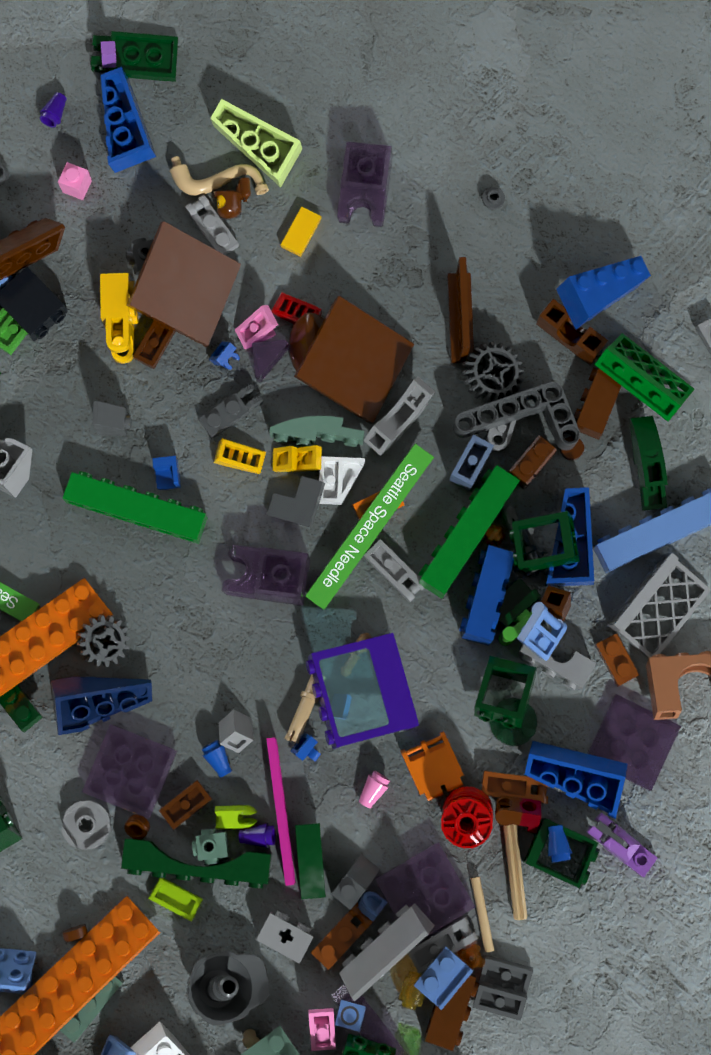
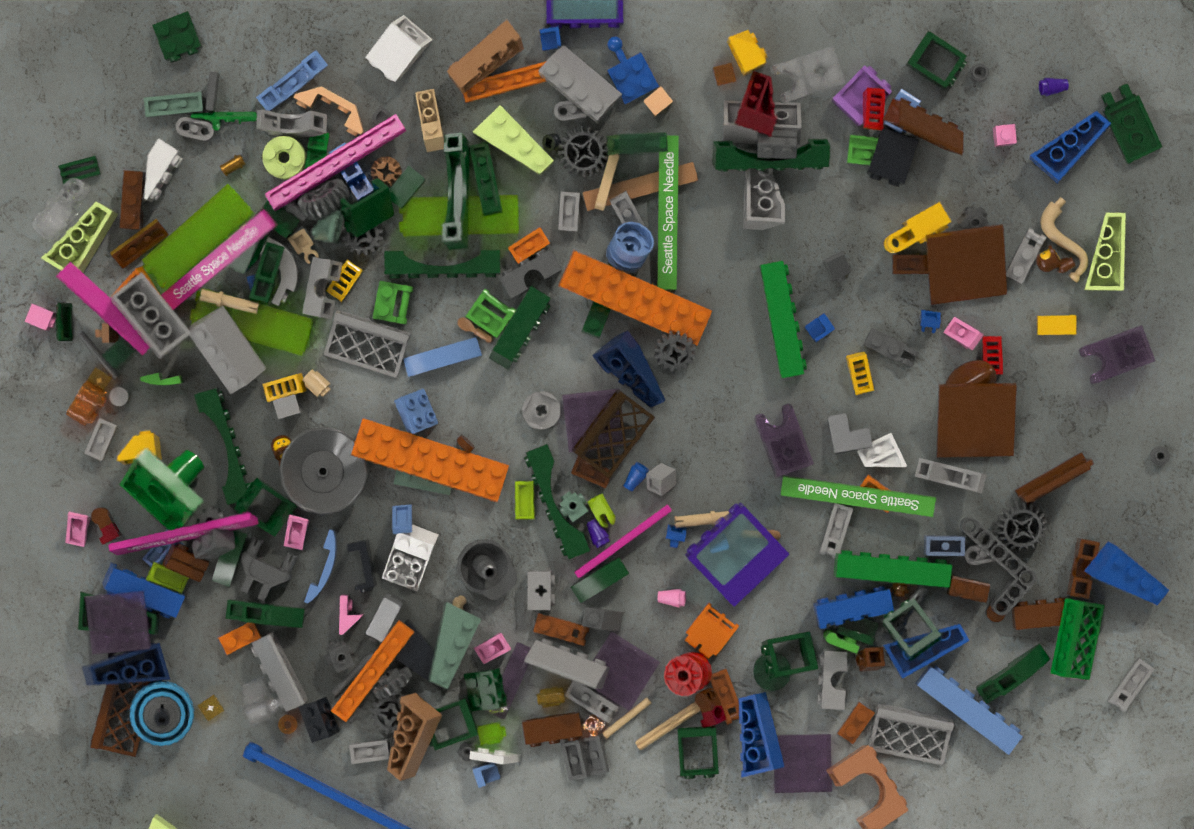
camera: 65 degrees right, 10 degrees up
(108, 54) = (1116, 107): medium lavender piece -> none
(135, 765) = (603, 420): none -> dark brown fence
(137, 827) = (558, 446): reddish brown tile -> none
(267, 355) = (945, 352): clear purple slope -> none
(297, 459) = (880, 416): yellow slope -> none
(307, 429) = (906, 412): sand green slope -> none
(350, 1015) = (511, 663): medium blue tile -> none
(371, 904) = (592, 638): medium blue tile -> none
(443, 978) = (570, 713): medium blue plate -> none
(537, 637) = (839, 660): medium blue plate -> none
(558, 844) = (702, 746): blue cone -> none
(622, 845) = (725, 791): medium lavender plate -> none

